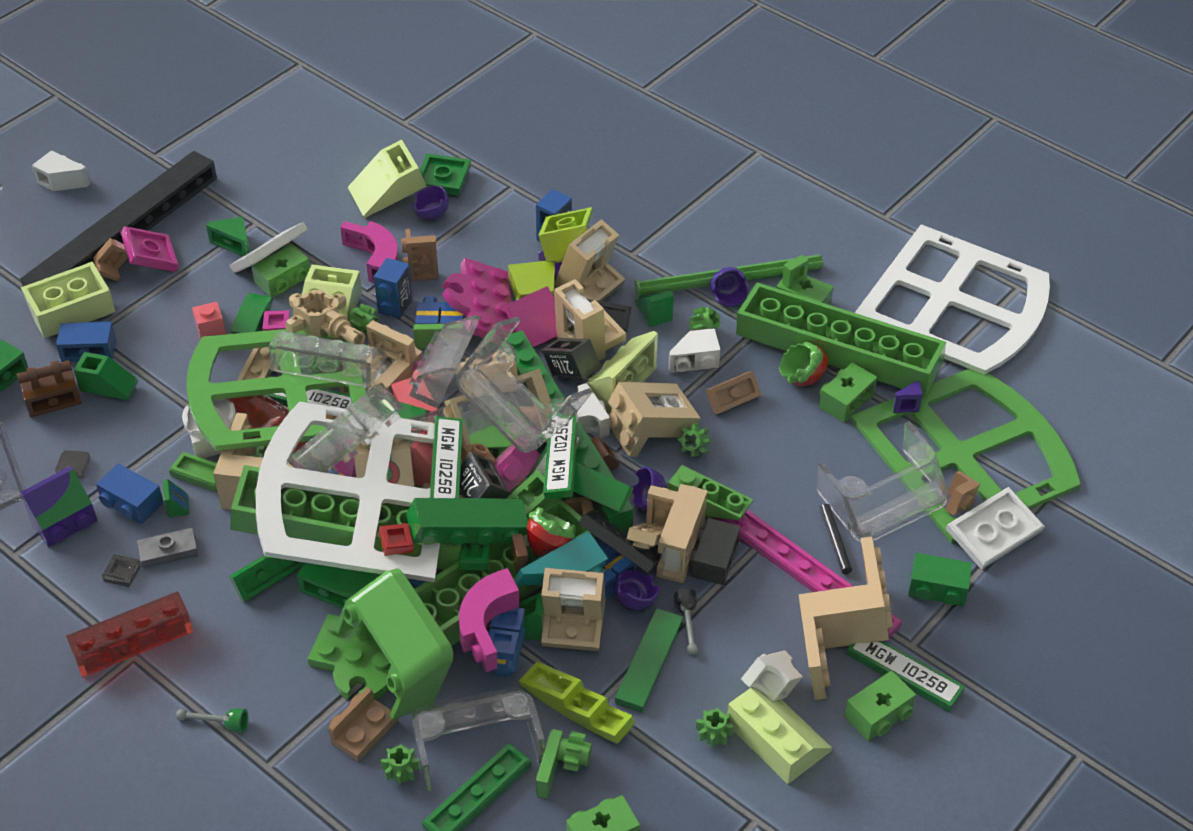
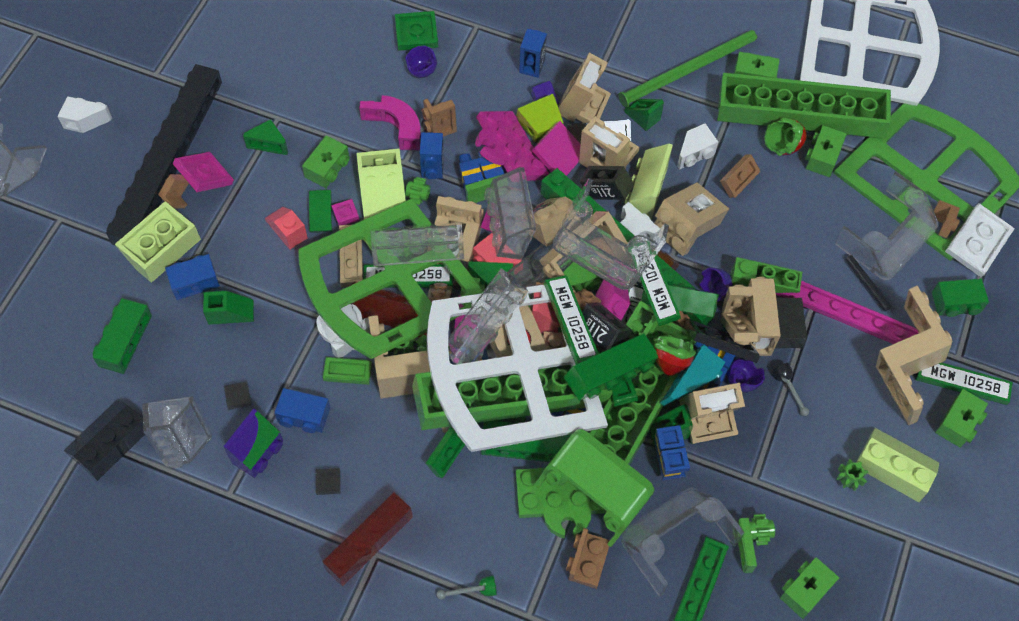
camera: 20 degrees left, 15 degrees up
(49, 388) = (185, 333): reddish brown brick -> none
(167, 547) = (355, 449): flat silver plate -> none
(175, 499) = (342, 404): green slope -> none
(268, 247) = (306, 143): white tile -> none
(319, 314) = (400, 206): tan piece -> none
(386, 179) = (376, 50): yellowish green slope -> none
(396, 539) = (566, 402): red tile -> none
(400, 764) = (631, 589): bright green gear -> none
(483, 602) = (650, 448): dark pink arch -> none
(519, 552) = (657, 380): reddish brown tile -> none
(562, 230) = (557, 68): lime slope -> none
(576, 703) = (740, 485): lime slope -> none
(649, 660) = (777, 431): green tile -> none
(689, 437) = (729, 222): bright green gear -> none
(704, 319) = (691, 117): bright green gear -> none
(730, 287) = (697, 79): dark purple hair -> none
(773, 675) = (881, 419): white brick -> none
(795, 271) = (748, 54): bright green plate -> none
(908, 399) = (877, 145): dark purple slope -> none

